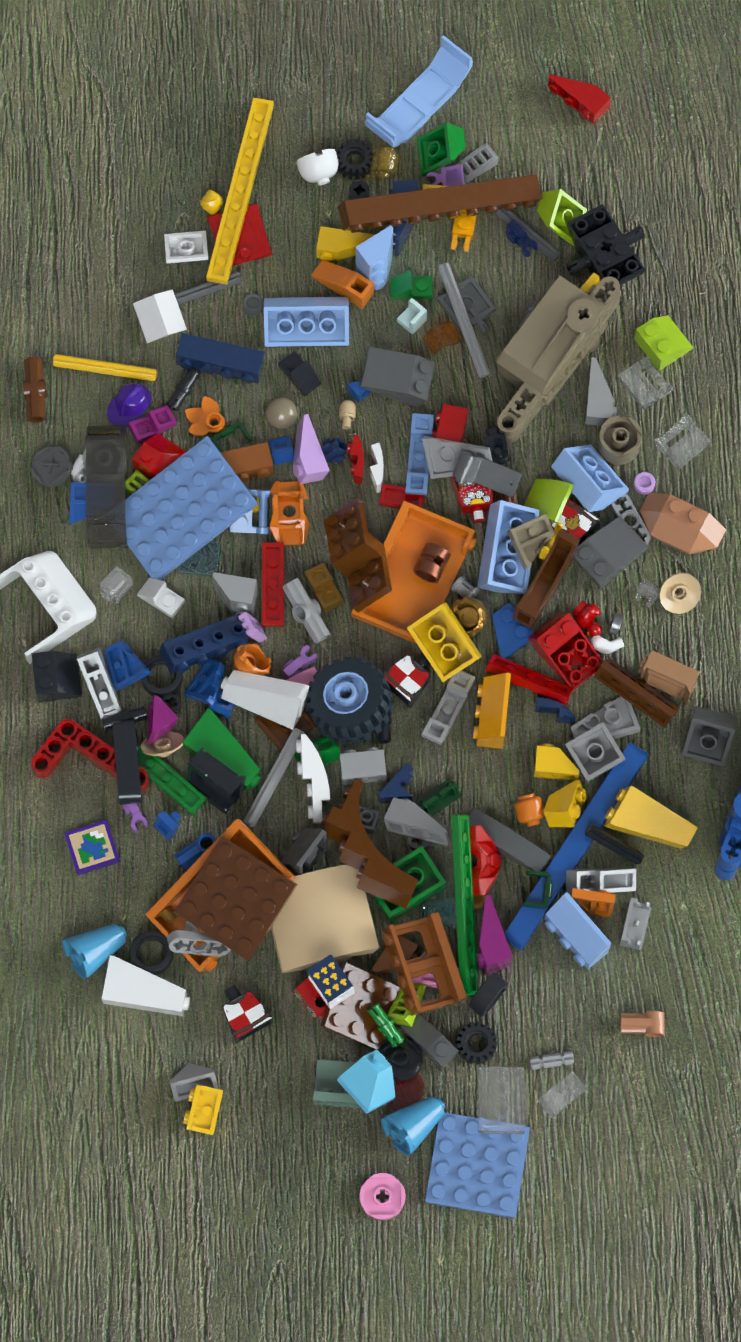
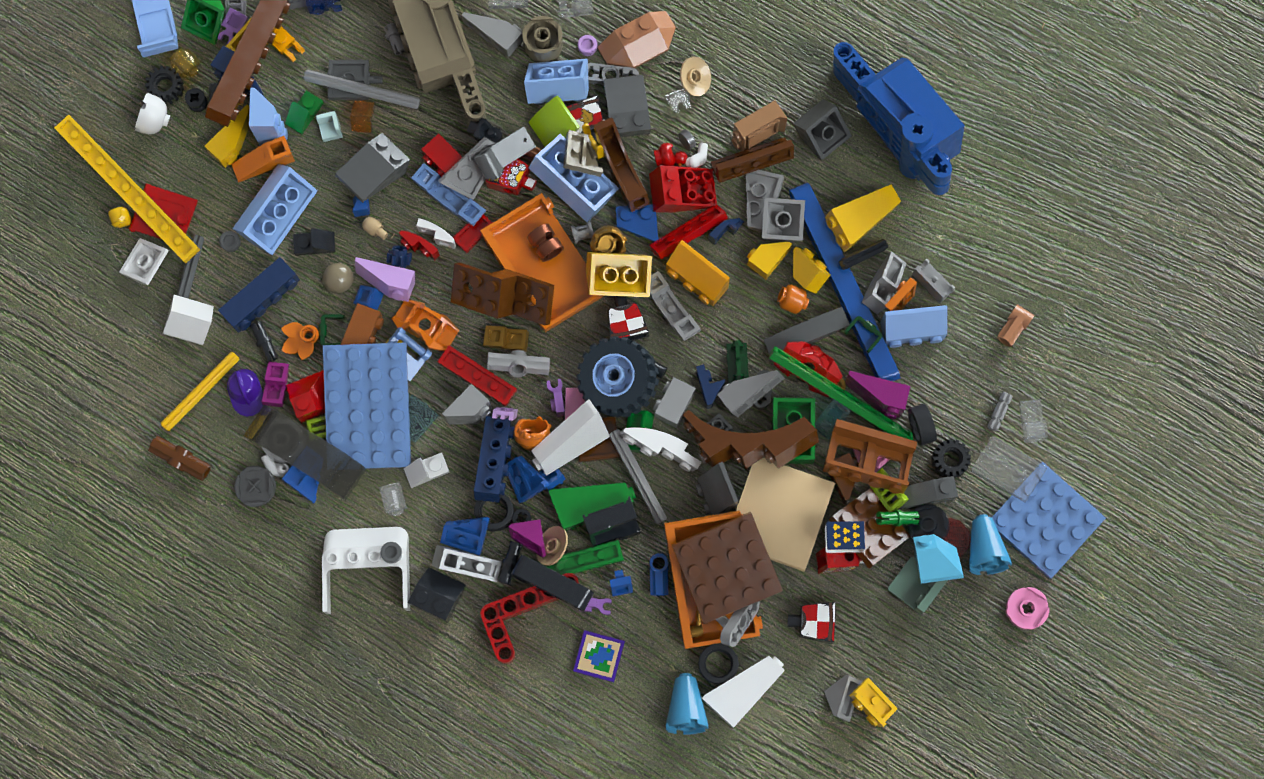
camera: 55 degrees left, 5 degrees up
(64, 611) = (391, 552): none -> dark grey tile

